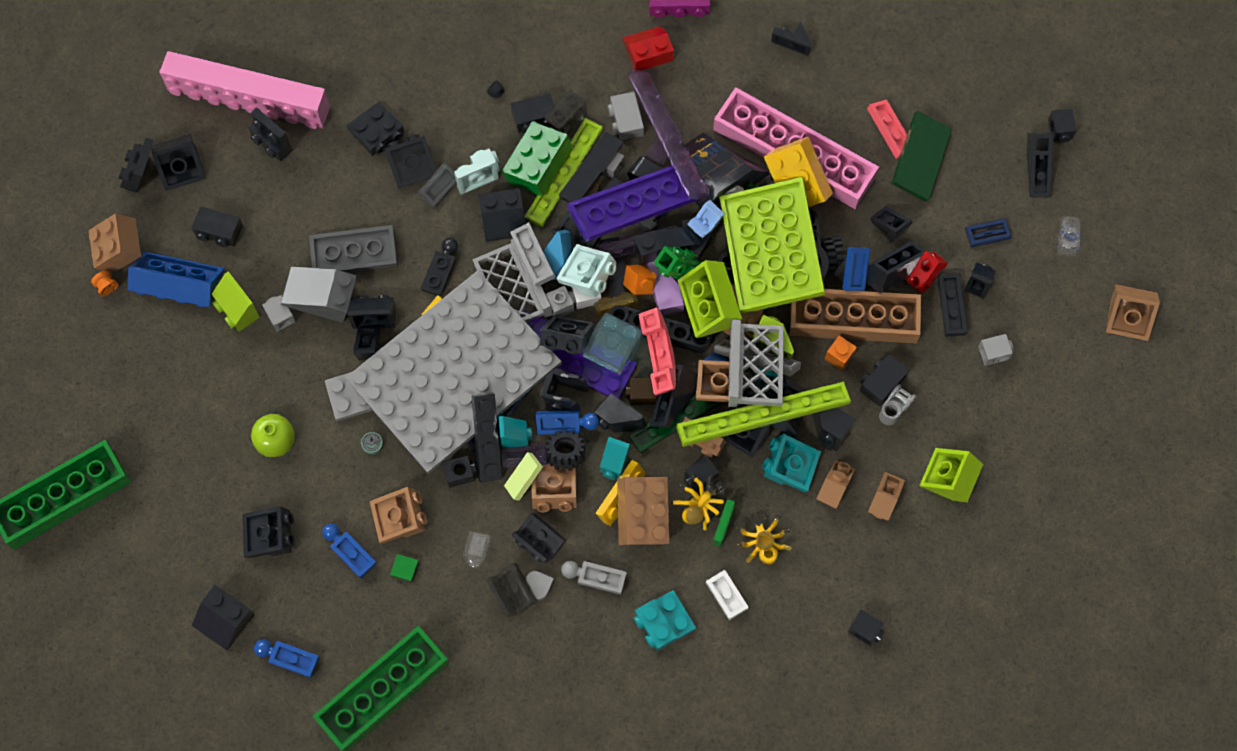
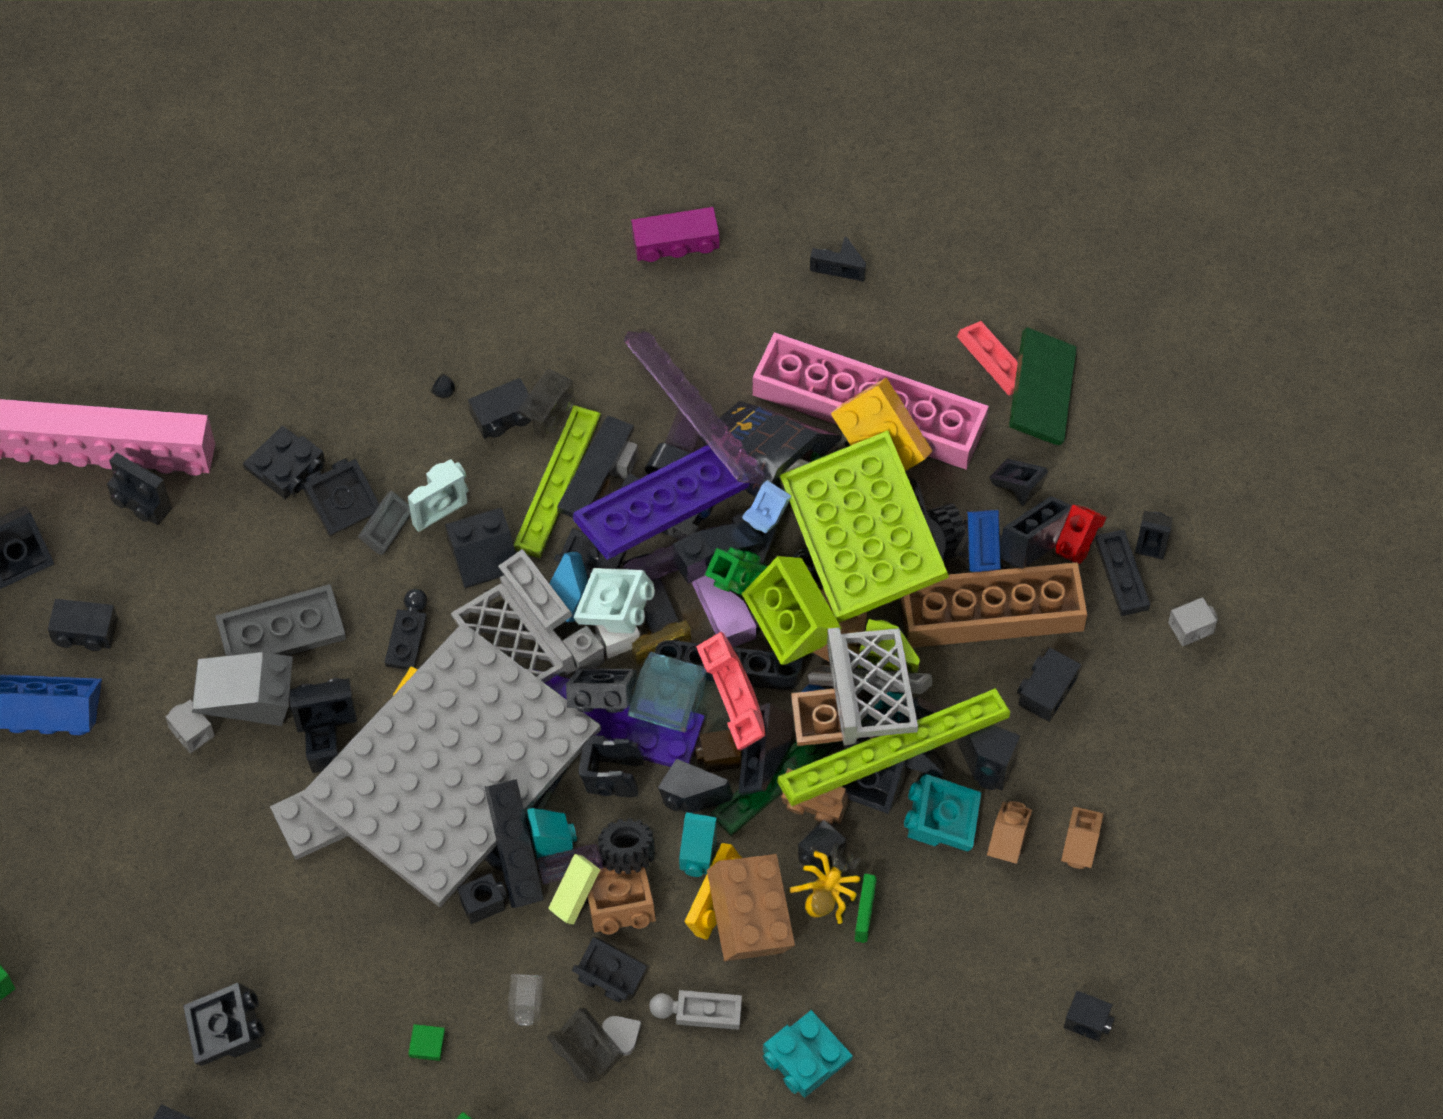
camera: 10 degrees left, 10 degrees down
(234, 303) = (125, 720): lime slope -> none
(272, 435) = (208, 892): lime cylinder -> none
(349, 550) = (344, 1031): blue plate -> none
(371, 443) = (351, 881): tile -> none
(398, 515) = (406, 970): medium nougat plate -> none
(537, 159) = (518, 467): brick -> none
(555, 421) = (601, 810): blue plate -> none
(626, 116) = (630, 394): light grey brick -> none
(639, 279) = (688, 602): orange brick -> none
(649, 48) = (646, 302): red slope -> none
(727, 595) = (887, 1004): white plate -> none
(764, 539) = (925, 919): animal -> none
(840, 353) = (983, 658): orange brick -> none
(898, 403) = (1073, 711): light grey piece -> none
(952, 474) = (1166, 793): lime slope -> none
(971, 237) = (1147, 485): dark blue tile -> none
(1039, 163) = (1203, 372): black slope -> none
(1062, 125) = (1224, 319): black brick -> none
(1068, 236) = (1261, 461): clear leg -> none
(1132, 312) = (1367, 545): medium nougat slope -> none

